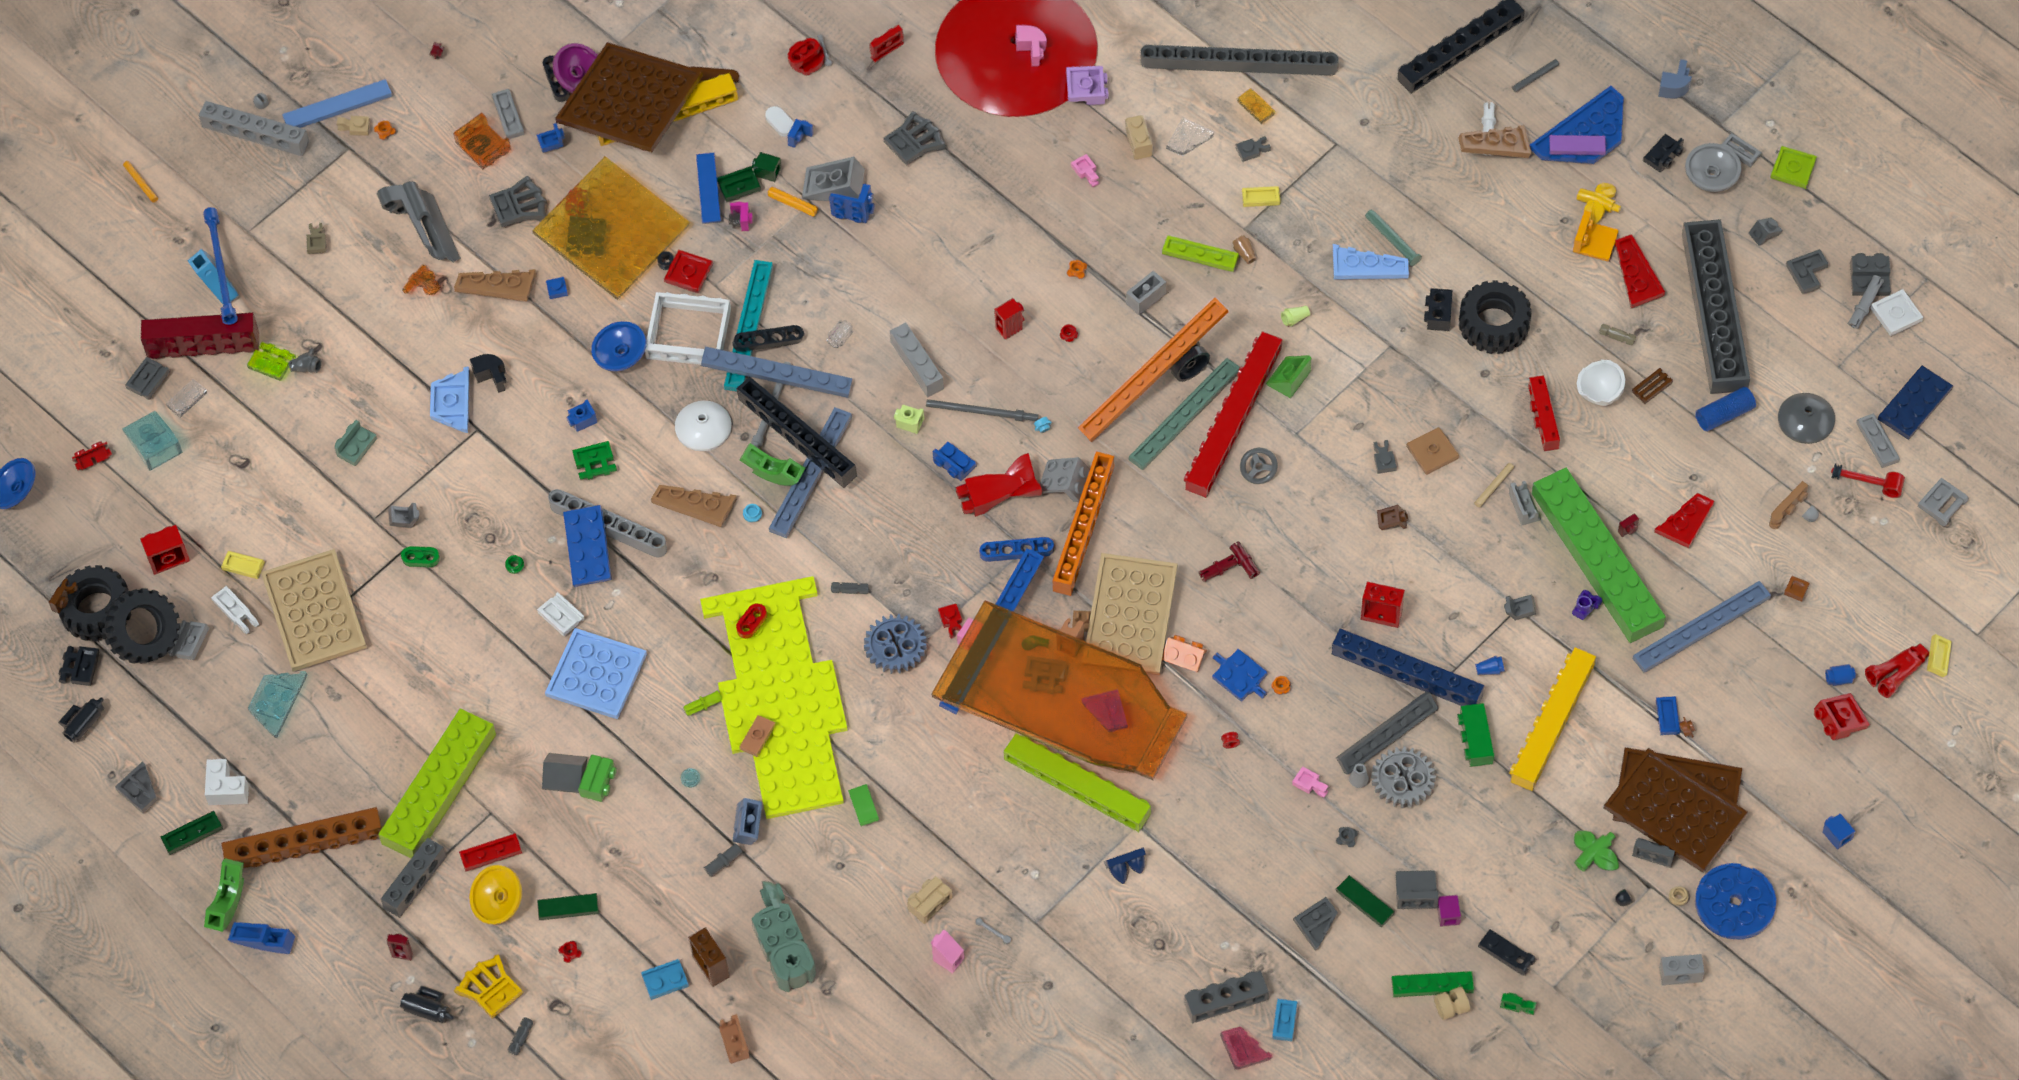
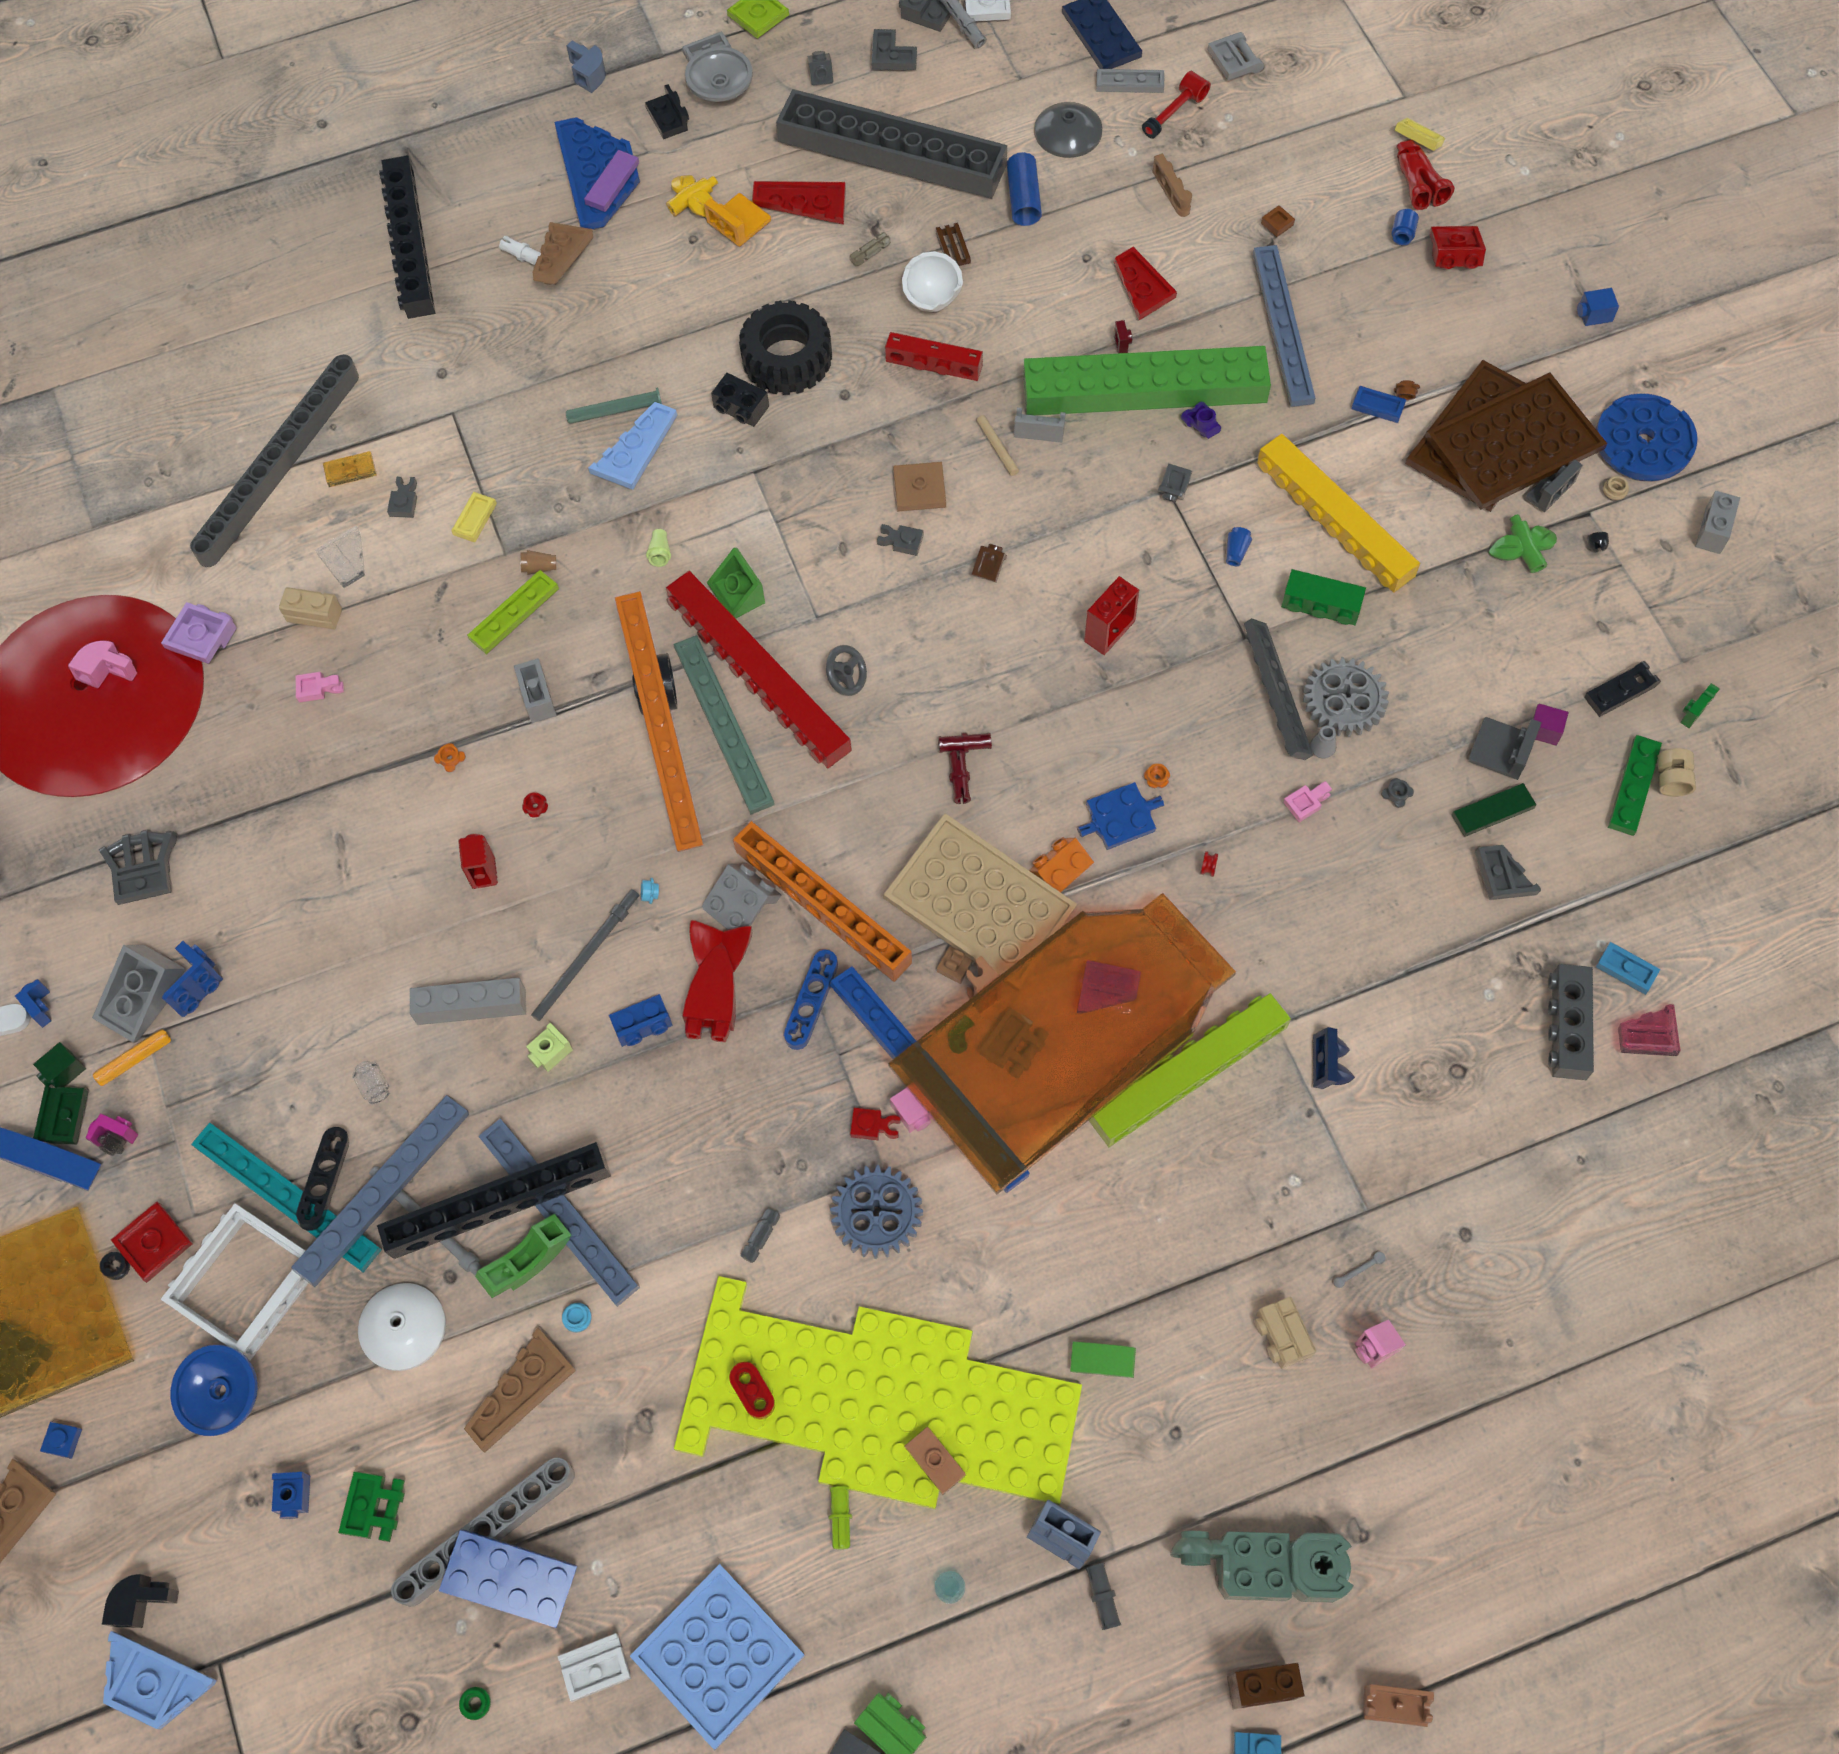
camera: 65 degrees left, 5 degrees up
(1406, 669) = (1203, 631): dark blue brick -> none
(1537, 74) = (492, 187): dark grey bar -> none
(1811, 514) = (1191, 171): light grey hinge -> none

